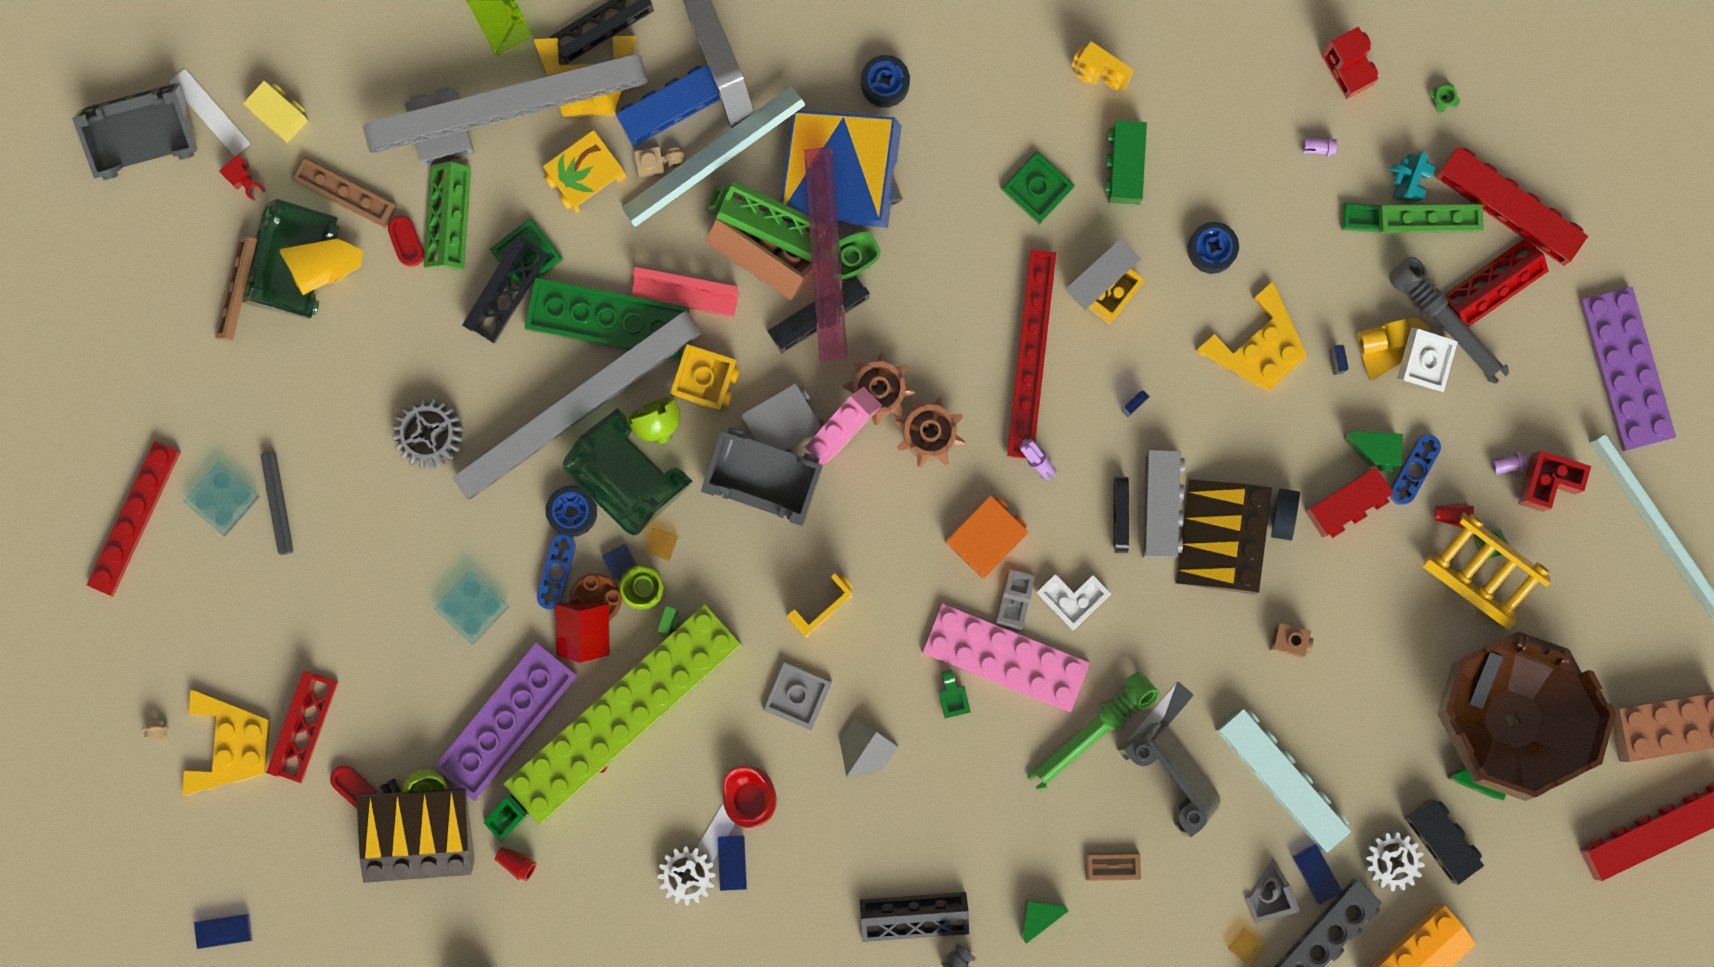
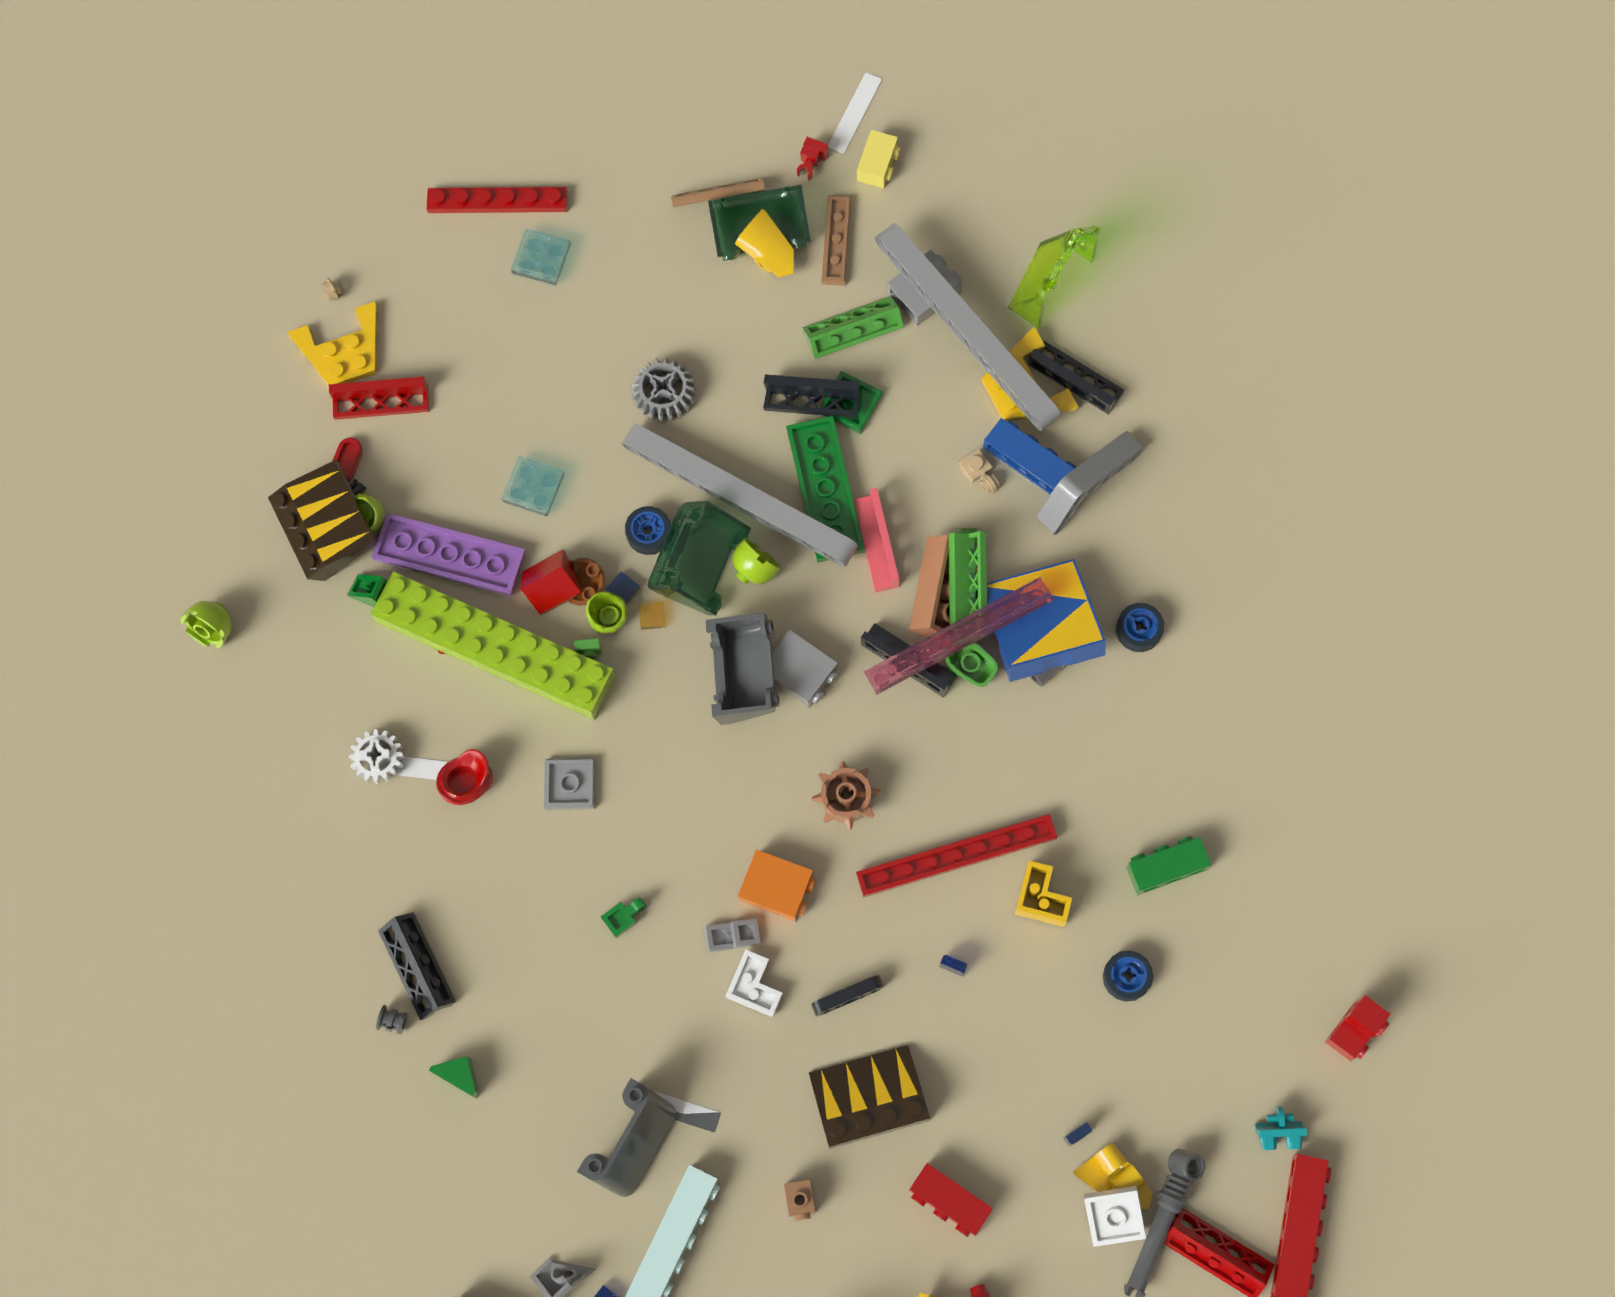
camera: 75 degrees right, 10 degrees down
(135, 130) = (811, 62): dark grey windscreen -> none
(223, 931) = (189, 411): clear blue tile -> none
(276, 503) = (555, 300): dark grey axle -> none
(406, 241) = (818, 304): red tile -> none
(516, 863) = (332, 615): red cone -> none
(549, 563) = (600, 547): blue beam -> none
(582, 171) = (942, 414): yellow panel -> none
(705, 378) = (809, 588): yellow plate -> none
(713, 156) = (1004, 512): light aqua tile -> none
(732, 862) = (403, 790): clear blue tile -> none
(805, 629) = (628, 761): yellow panel -> none
(843, 425) = (816, 716): bright pink brick -> none
(864, 749) = (545, 860): light grey slope -> none
(891, 379) = (872, 724): nougat brick -> none
(1006, 658) = (677, 950): bright pink plate -> none
(1037, 459) = (863, 898): lavender axle -> none
(1038, 187) = (1109, 799): green tile -> none
(1090, 867) = (539, 1144): medium nougat tile -> none
(1096, 63) = (1240, 801): yellow plate -> none
(1103, 274) = (1054, 882): light grey sticker -> none
(1137, 694) = (692, 1076): bright green piece -> none
(1162, 504) = (872, 1028): light grey brick -> none
(1246, 946) = (505, 1277): clear yellow tile -> none
(1268, 353) = (1055, 1068): yellow wing -> none
(1285, 514) = (912, 1142): black wheel -> none
(1320, 146) = (1268, 1034): lavender pin -> none
(1360, 217) = (1223, 1108): green tile -> none
(1377, 449) = (1012, 1207): green slope -> none
(1418, 450) = (1029, 1246): blue beam -> none
(1431, 218) = (1249, 1165): bright green plate -> none
(1447, 90) = (1378, 1131): bright green plate -> none

